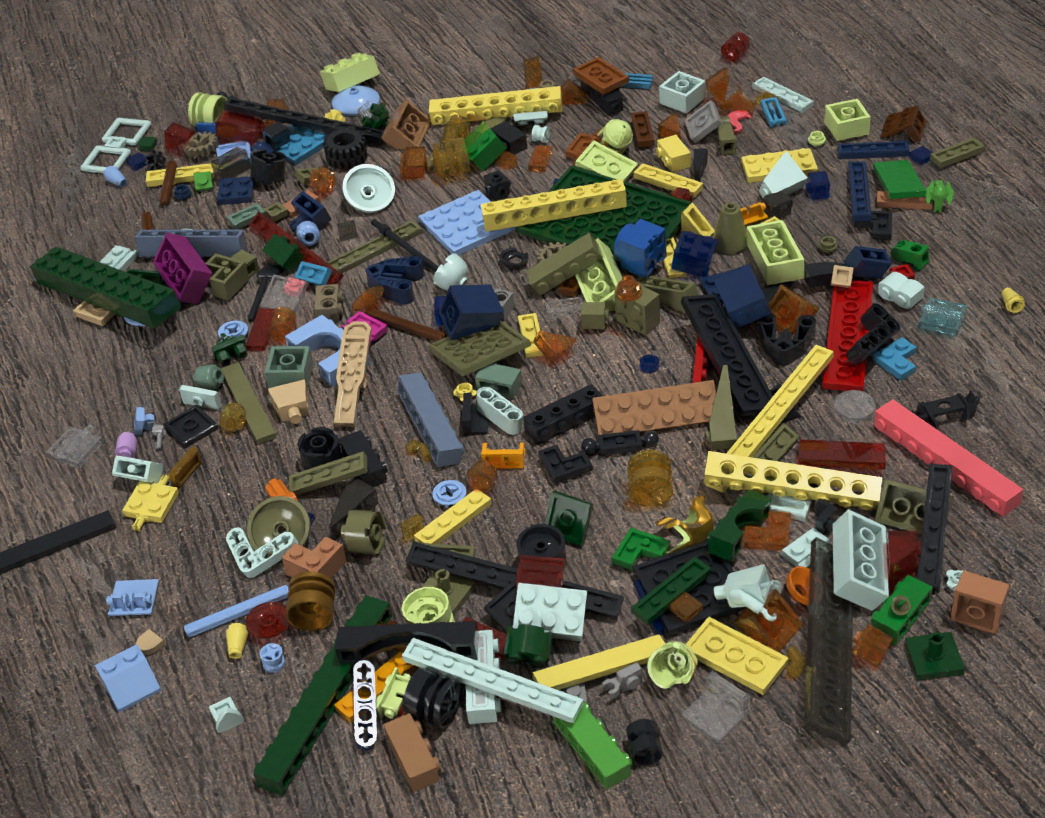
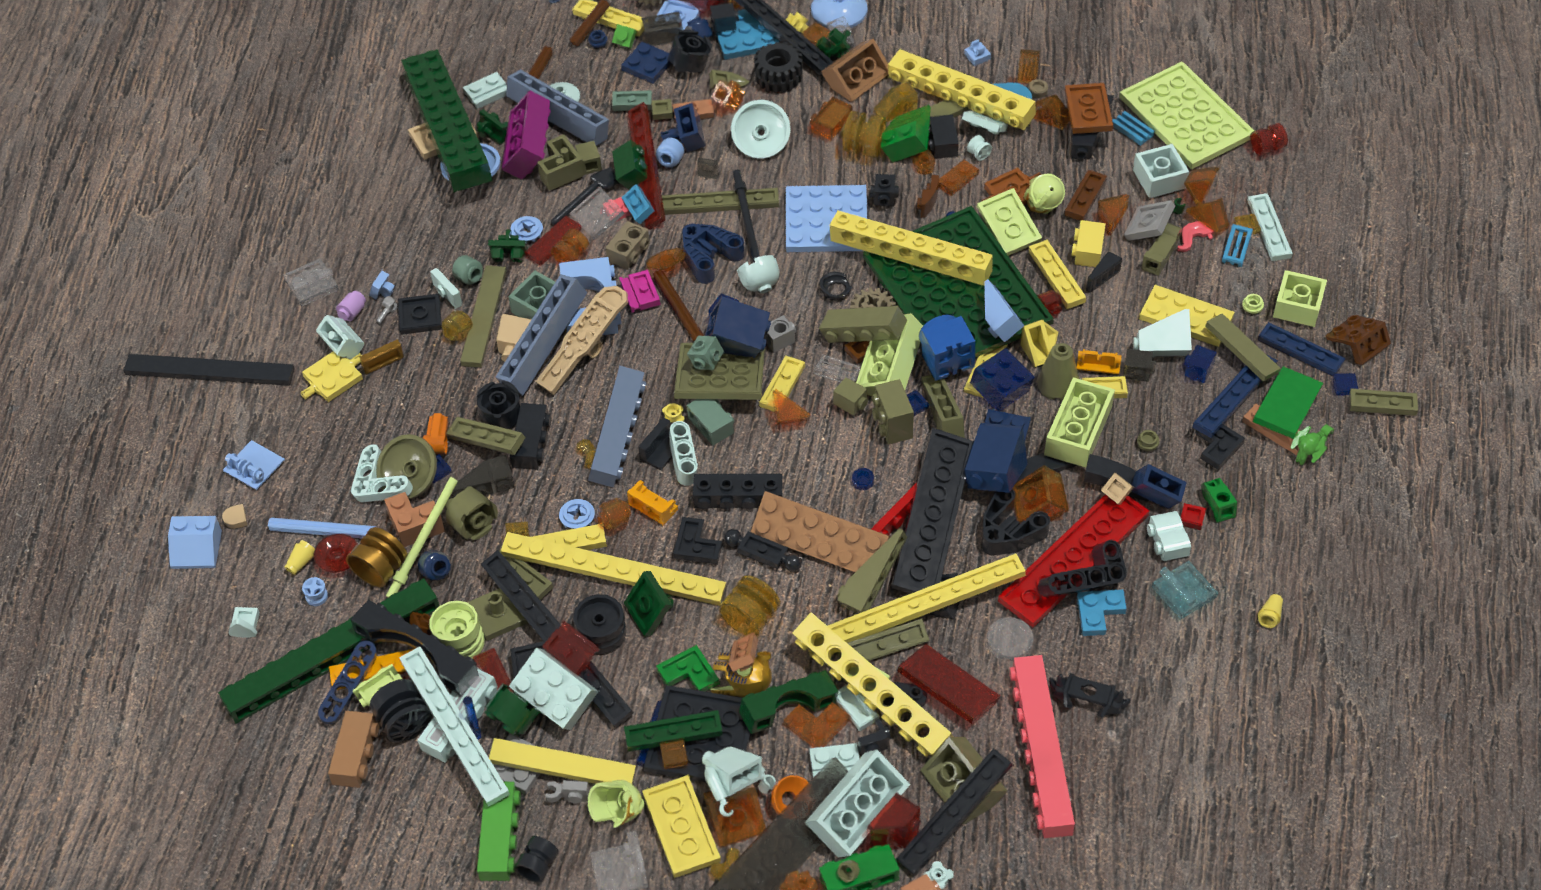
camera: 30 degrees right, 10 degrees up
(316, 380) = (542, 333): none -> sand blue brick
(340, 607) = (401, 576): none -> yellowish green bar
(354, 118) = (815, 32): none -> clear orange plate
(363, 583) = (434, 565): none -> dark blue head
(462, 333) = (705, 352): none -> sand green brick
(483, 84) = (977, 53): none -> light blue tile
(501, 656) = (471, 716): none -> clear blue bar
(507, 513) = (611, 567): none -> light yellow plate
(532, 175) = (929, 196): none -> reddish brown slope
(628, 289) = (885, 392): clear orange brick -> none
(660, 212) = (999, 314): none -> light blue slope
(664, 56) = (1186, 114): none -> yellowish green plate
(678, 507) = (743, 652): none -> nougat plate
(838, 161) = (1242, 347): none -> olive tile

